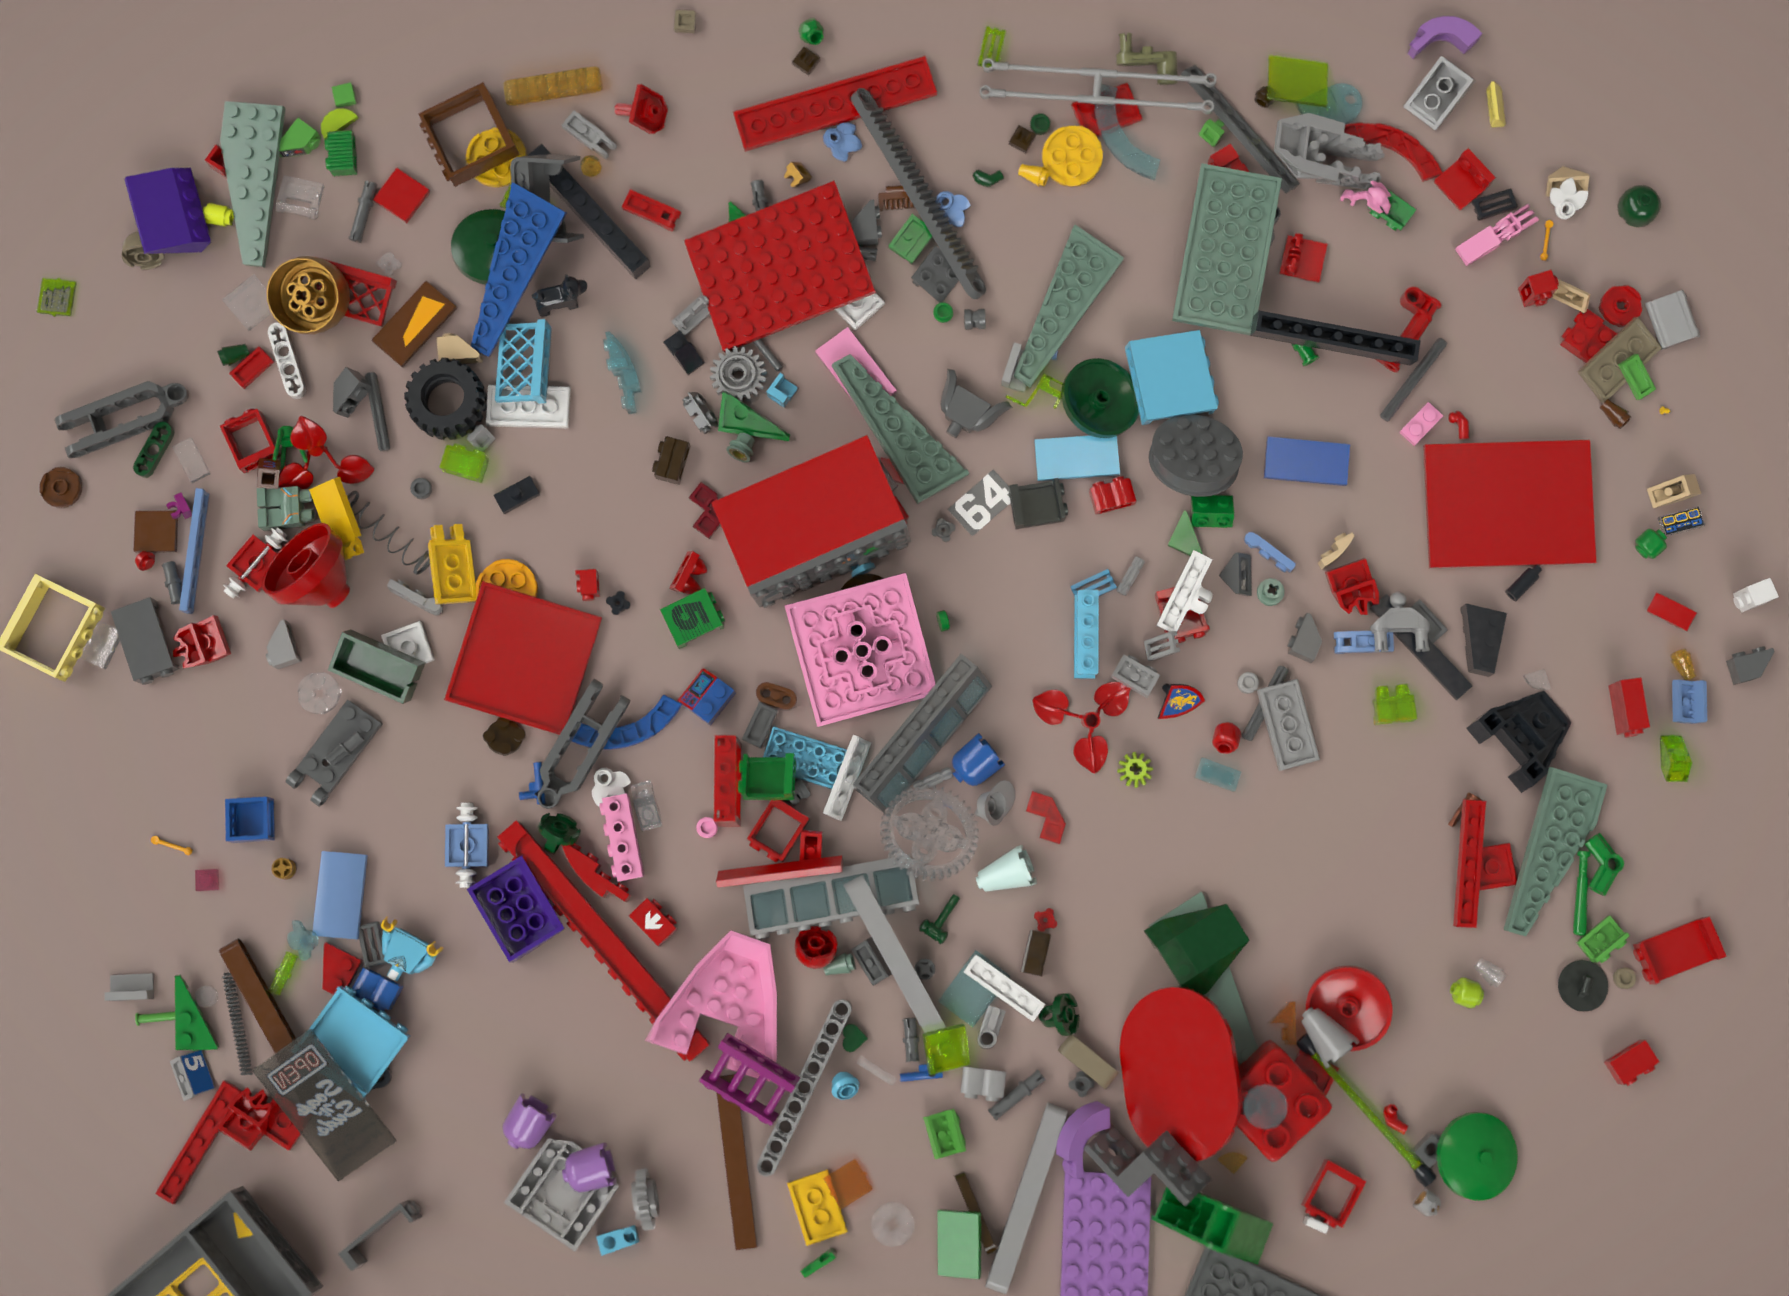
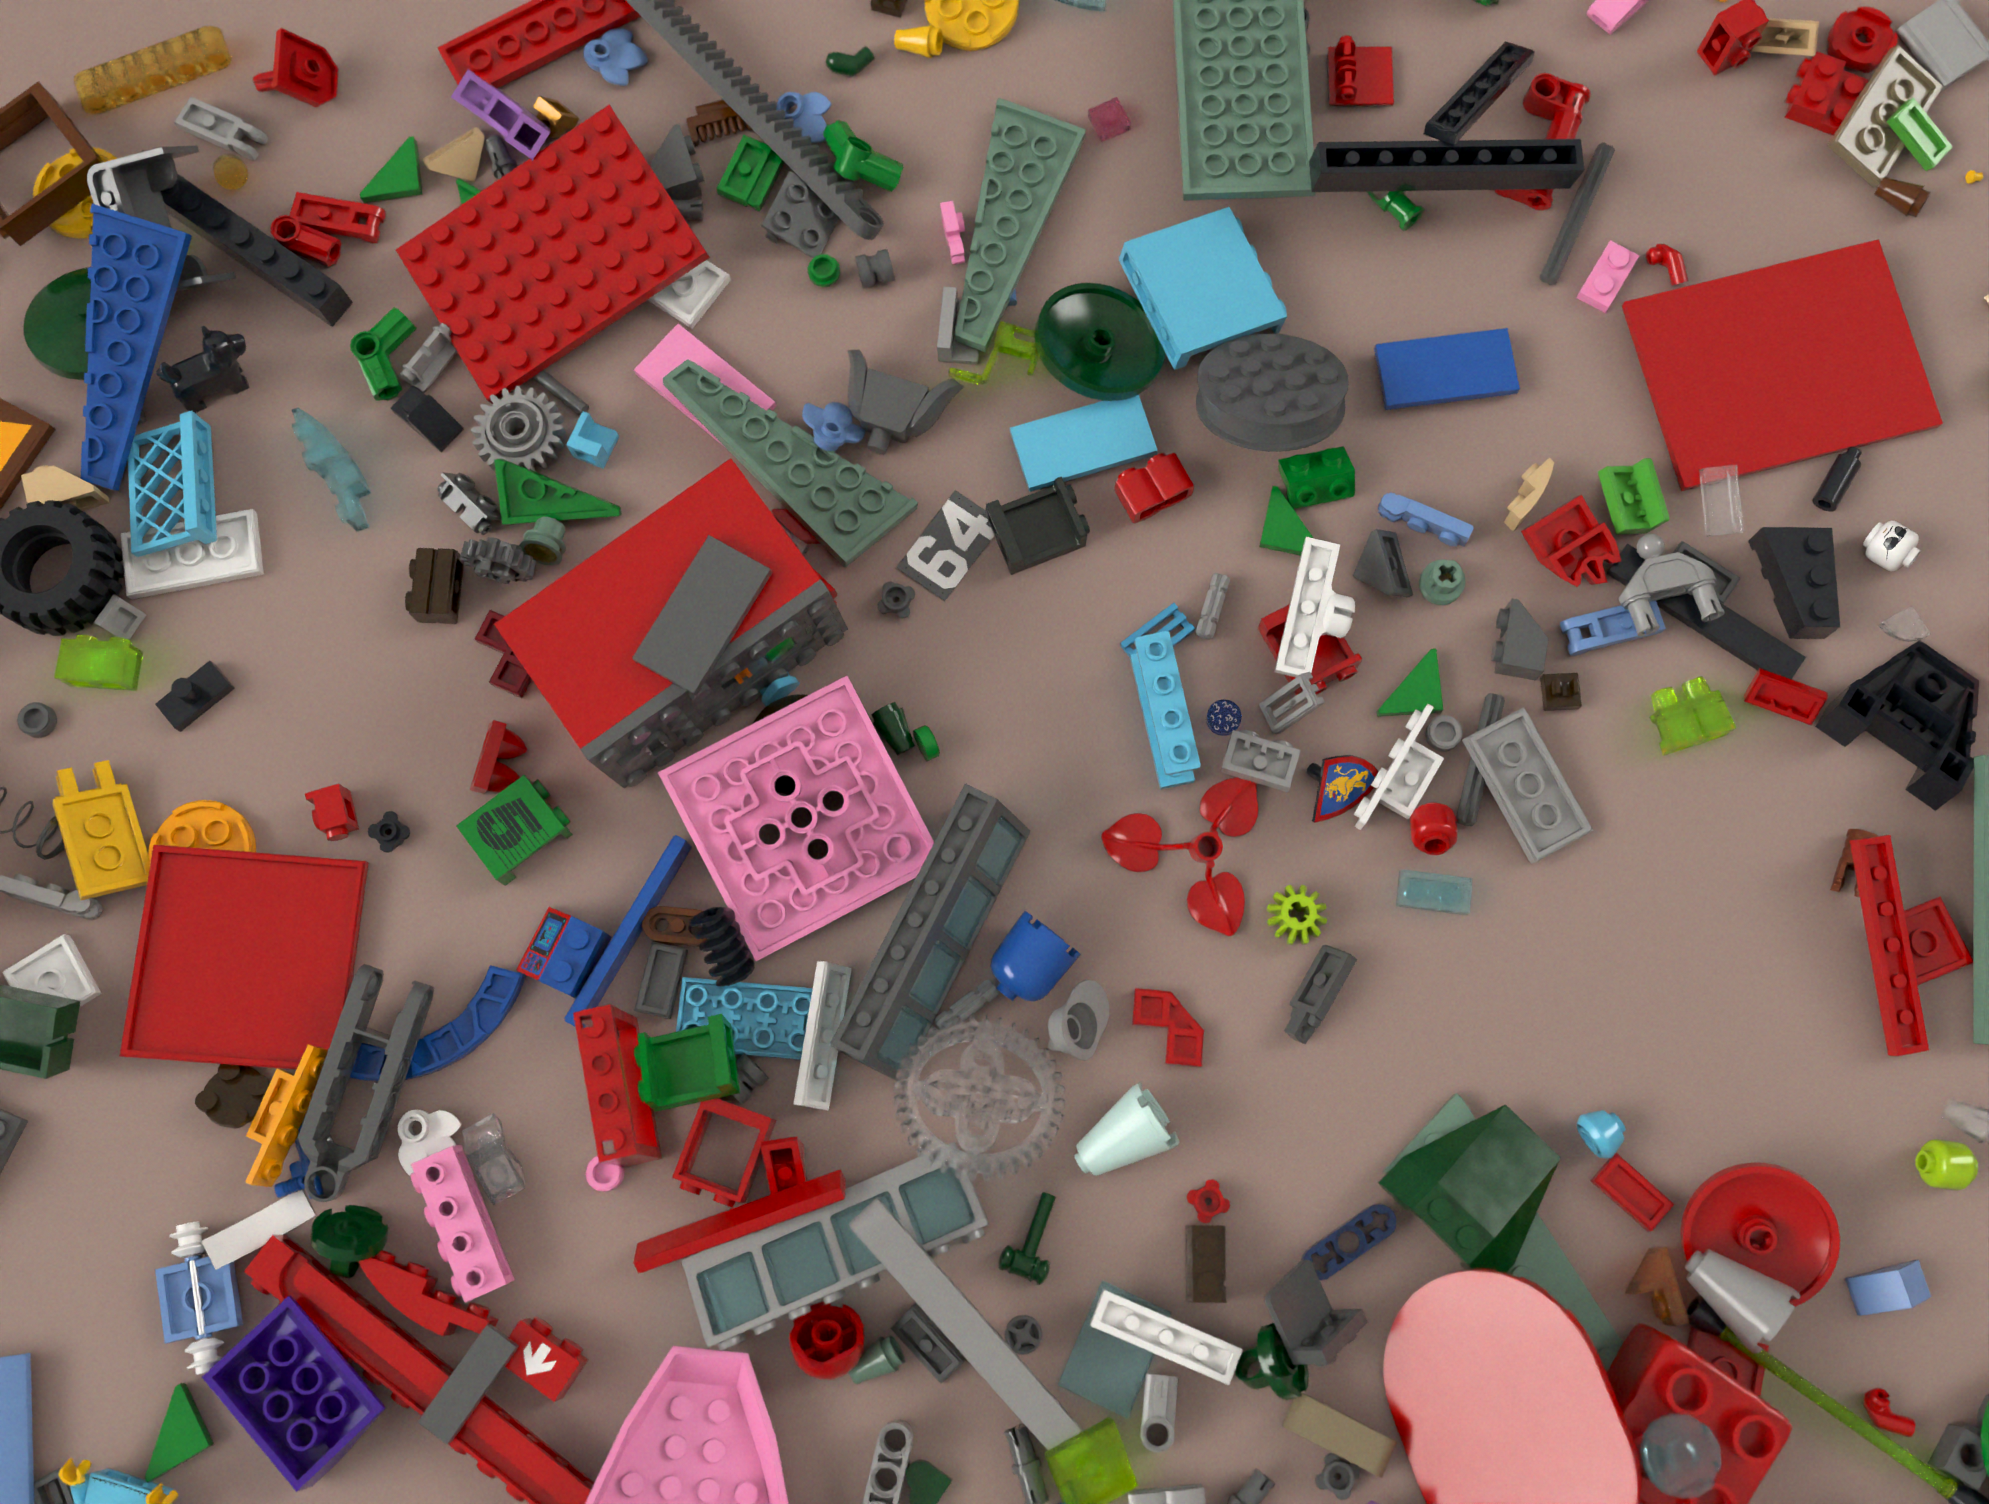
camera: 10 degrees left, 5 degrees down
(444, 919) = (180, 1436): none -> green tile
(506, 815) = (257, 1229): none -> white sticker
(531, 751) = (282, 1114): none -> light orange bracket
(612, 925) = (468, 1384): none -> dark grey tile
(631, 223) = (306, 241): none -> red piece
(668, 295) = (385, 338): none -> green piece
(692, 191) = (397, 177): none -> green tile
(713, 455) = (498, 560): none -> dark grey gear
(732, 186) = (458, 157): none -> tan slope
(747, 693) = (630, 927): none -> blue tile
(769, 169) = (502, 113): none -> medium lavender arch
(801, 713) = (725, 943): none -> black piece
(832, 525) = (702, 615): none -> dark grey tile
(925, 607) = (893, 727): none -> dark green cone
(928, 413) = (832, 425): none -> medium blue plate
(979, 247) = (858, 160): none -> green piece
(1028, 302) = (953, 226): none -> bright pink plate
(1085, 995) = (1306, 1320): none -> dark grey bracket
(1121, 644) = (1223, 717): none -> clear blue tile
(1136, 816) = (1318, 992): none -> dark grey hinge
(1136, 959) = (1365, 1219): none -> dark blue beam
(1140, 252) = (1109, 119): none -> clear pink plate
(1219, 704) = (1407, 776): none -> white bracket
(1238, 655) = (1416, 690): none -> green tile
(1277, 931) = (1601, 1132): none -> medium azure cone
(1286, 968) = (1632, 1192): none -> red tile
(1323, 673) = (1560, 691): none -> dark brown tile
(1369, 293) = (1479, 93): none -> black tile
(1397, 566) = (1634, 497): none -> bright green bracket
(1415, 1052) = (1888, 1288): none -> medium blue slope
(1449, 580) = (1721, 500): none -> clear tile
(1453, 706) = (1785, 696): none -> red plate
(1542, 630) = (1892, 545): none -> white head

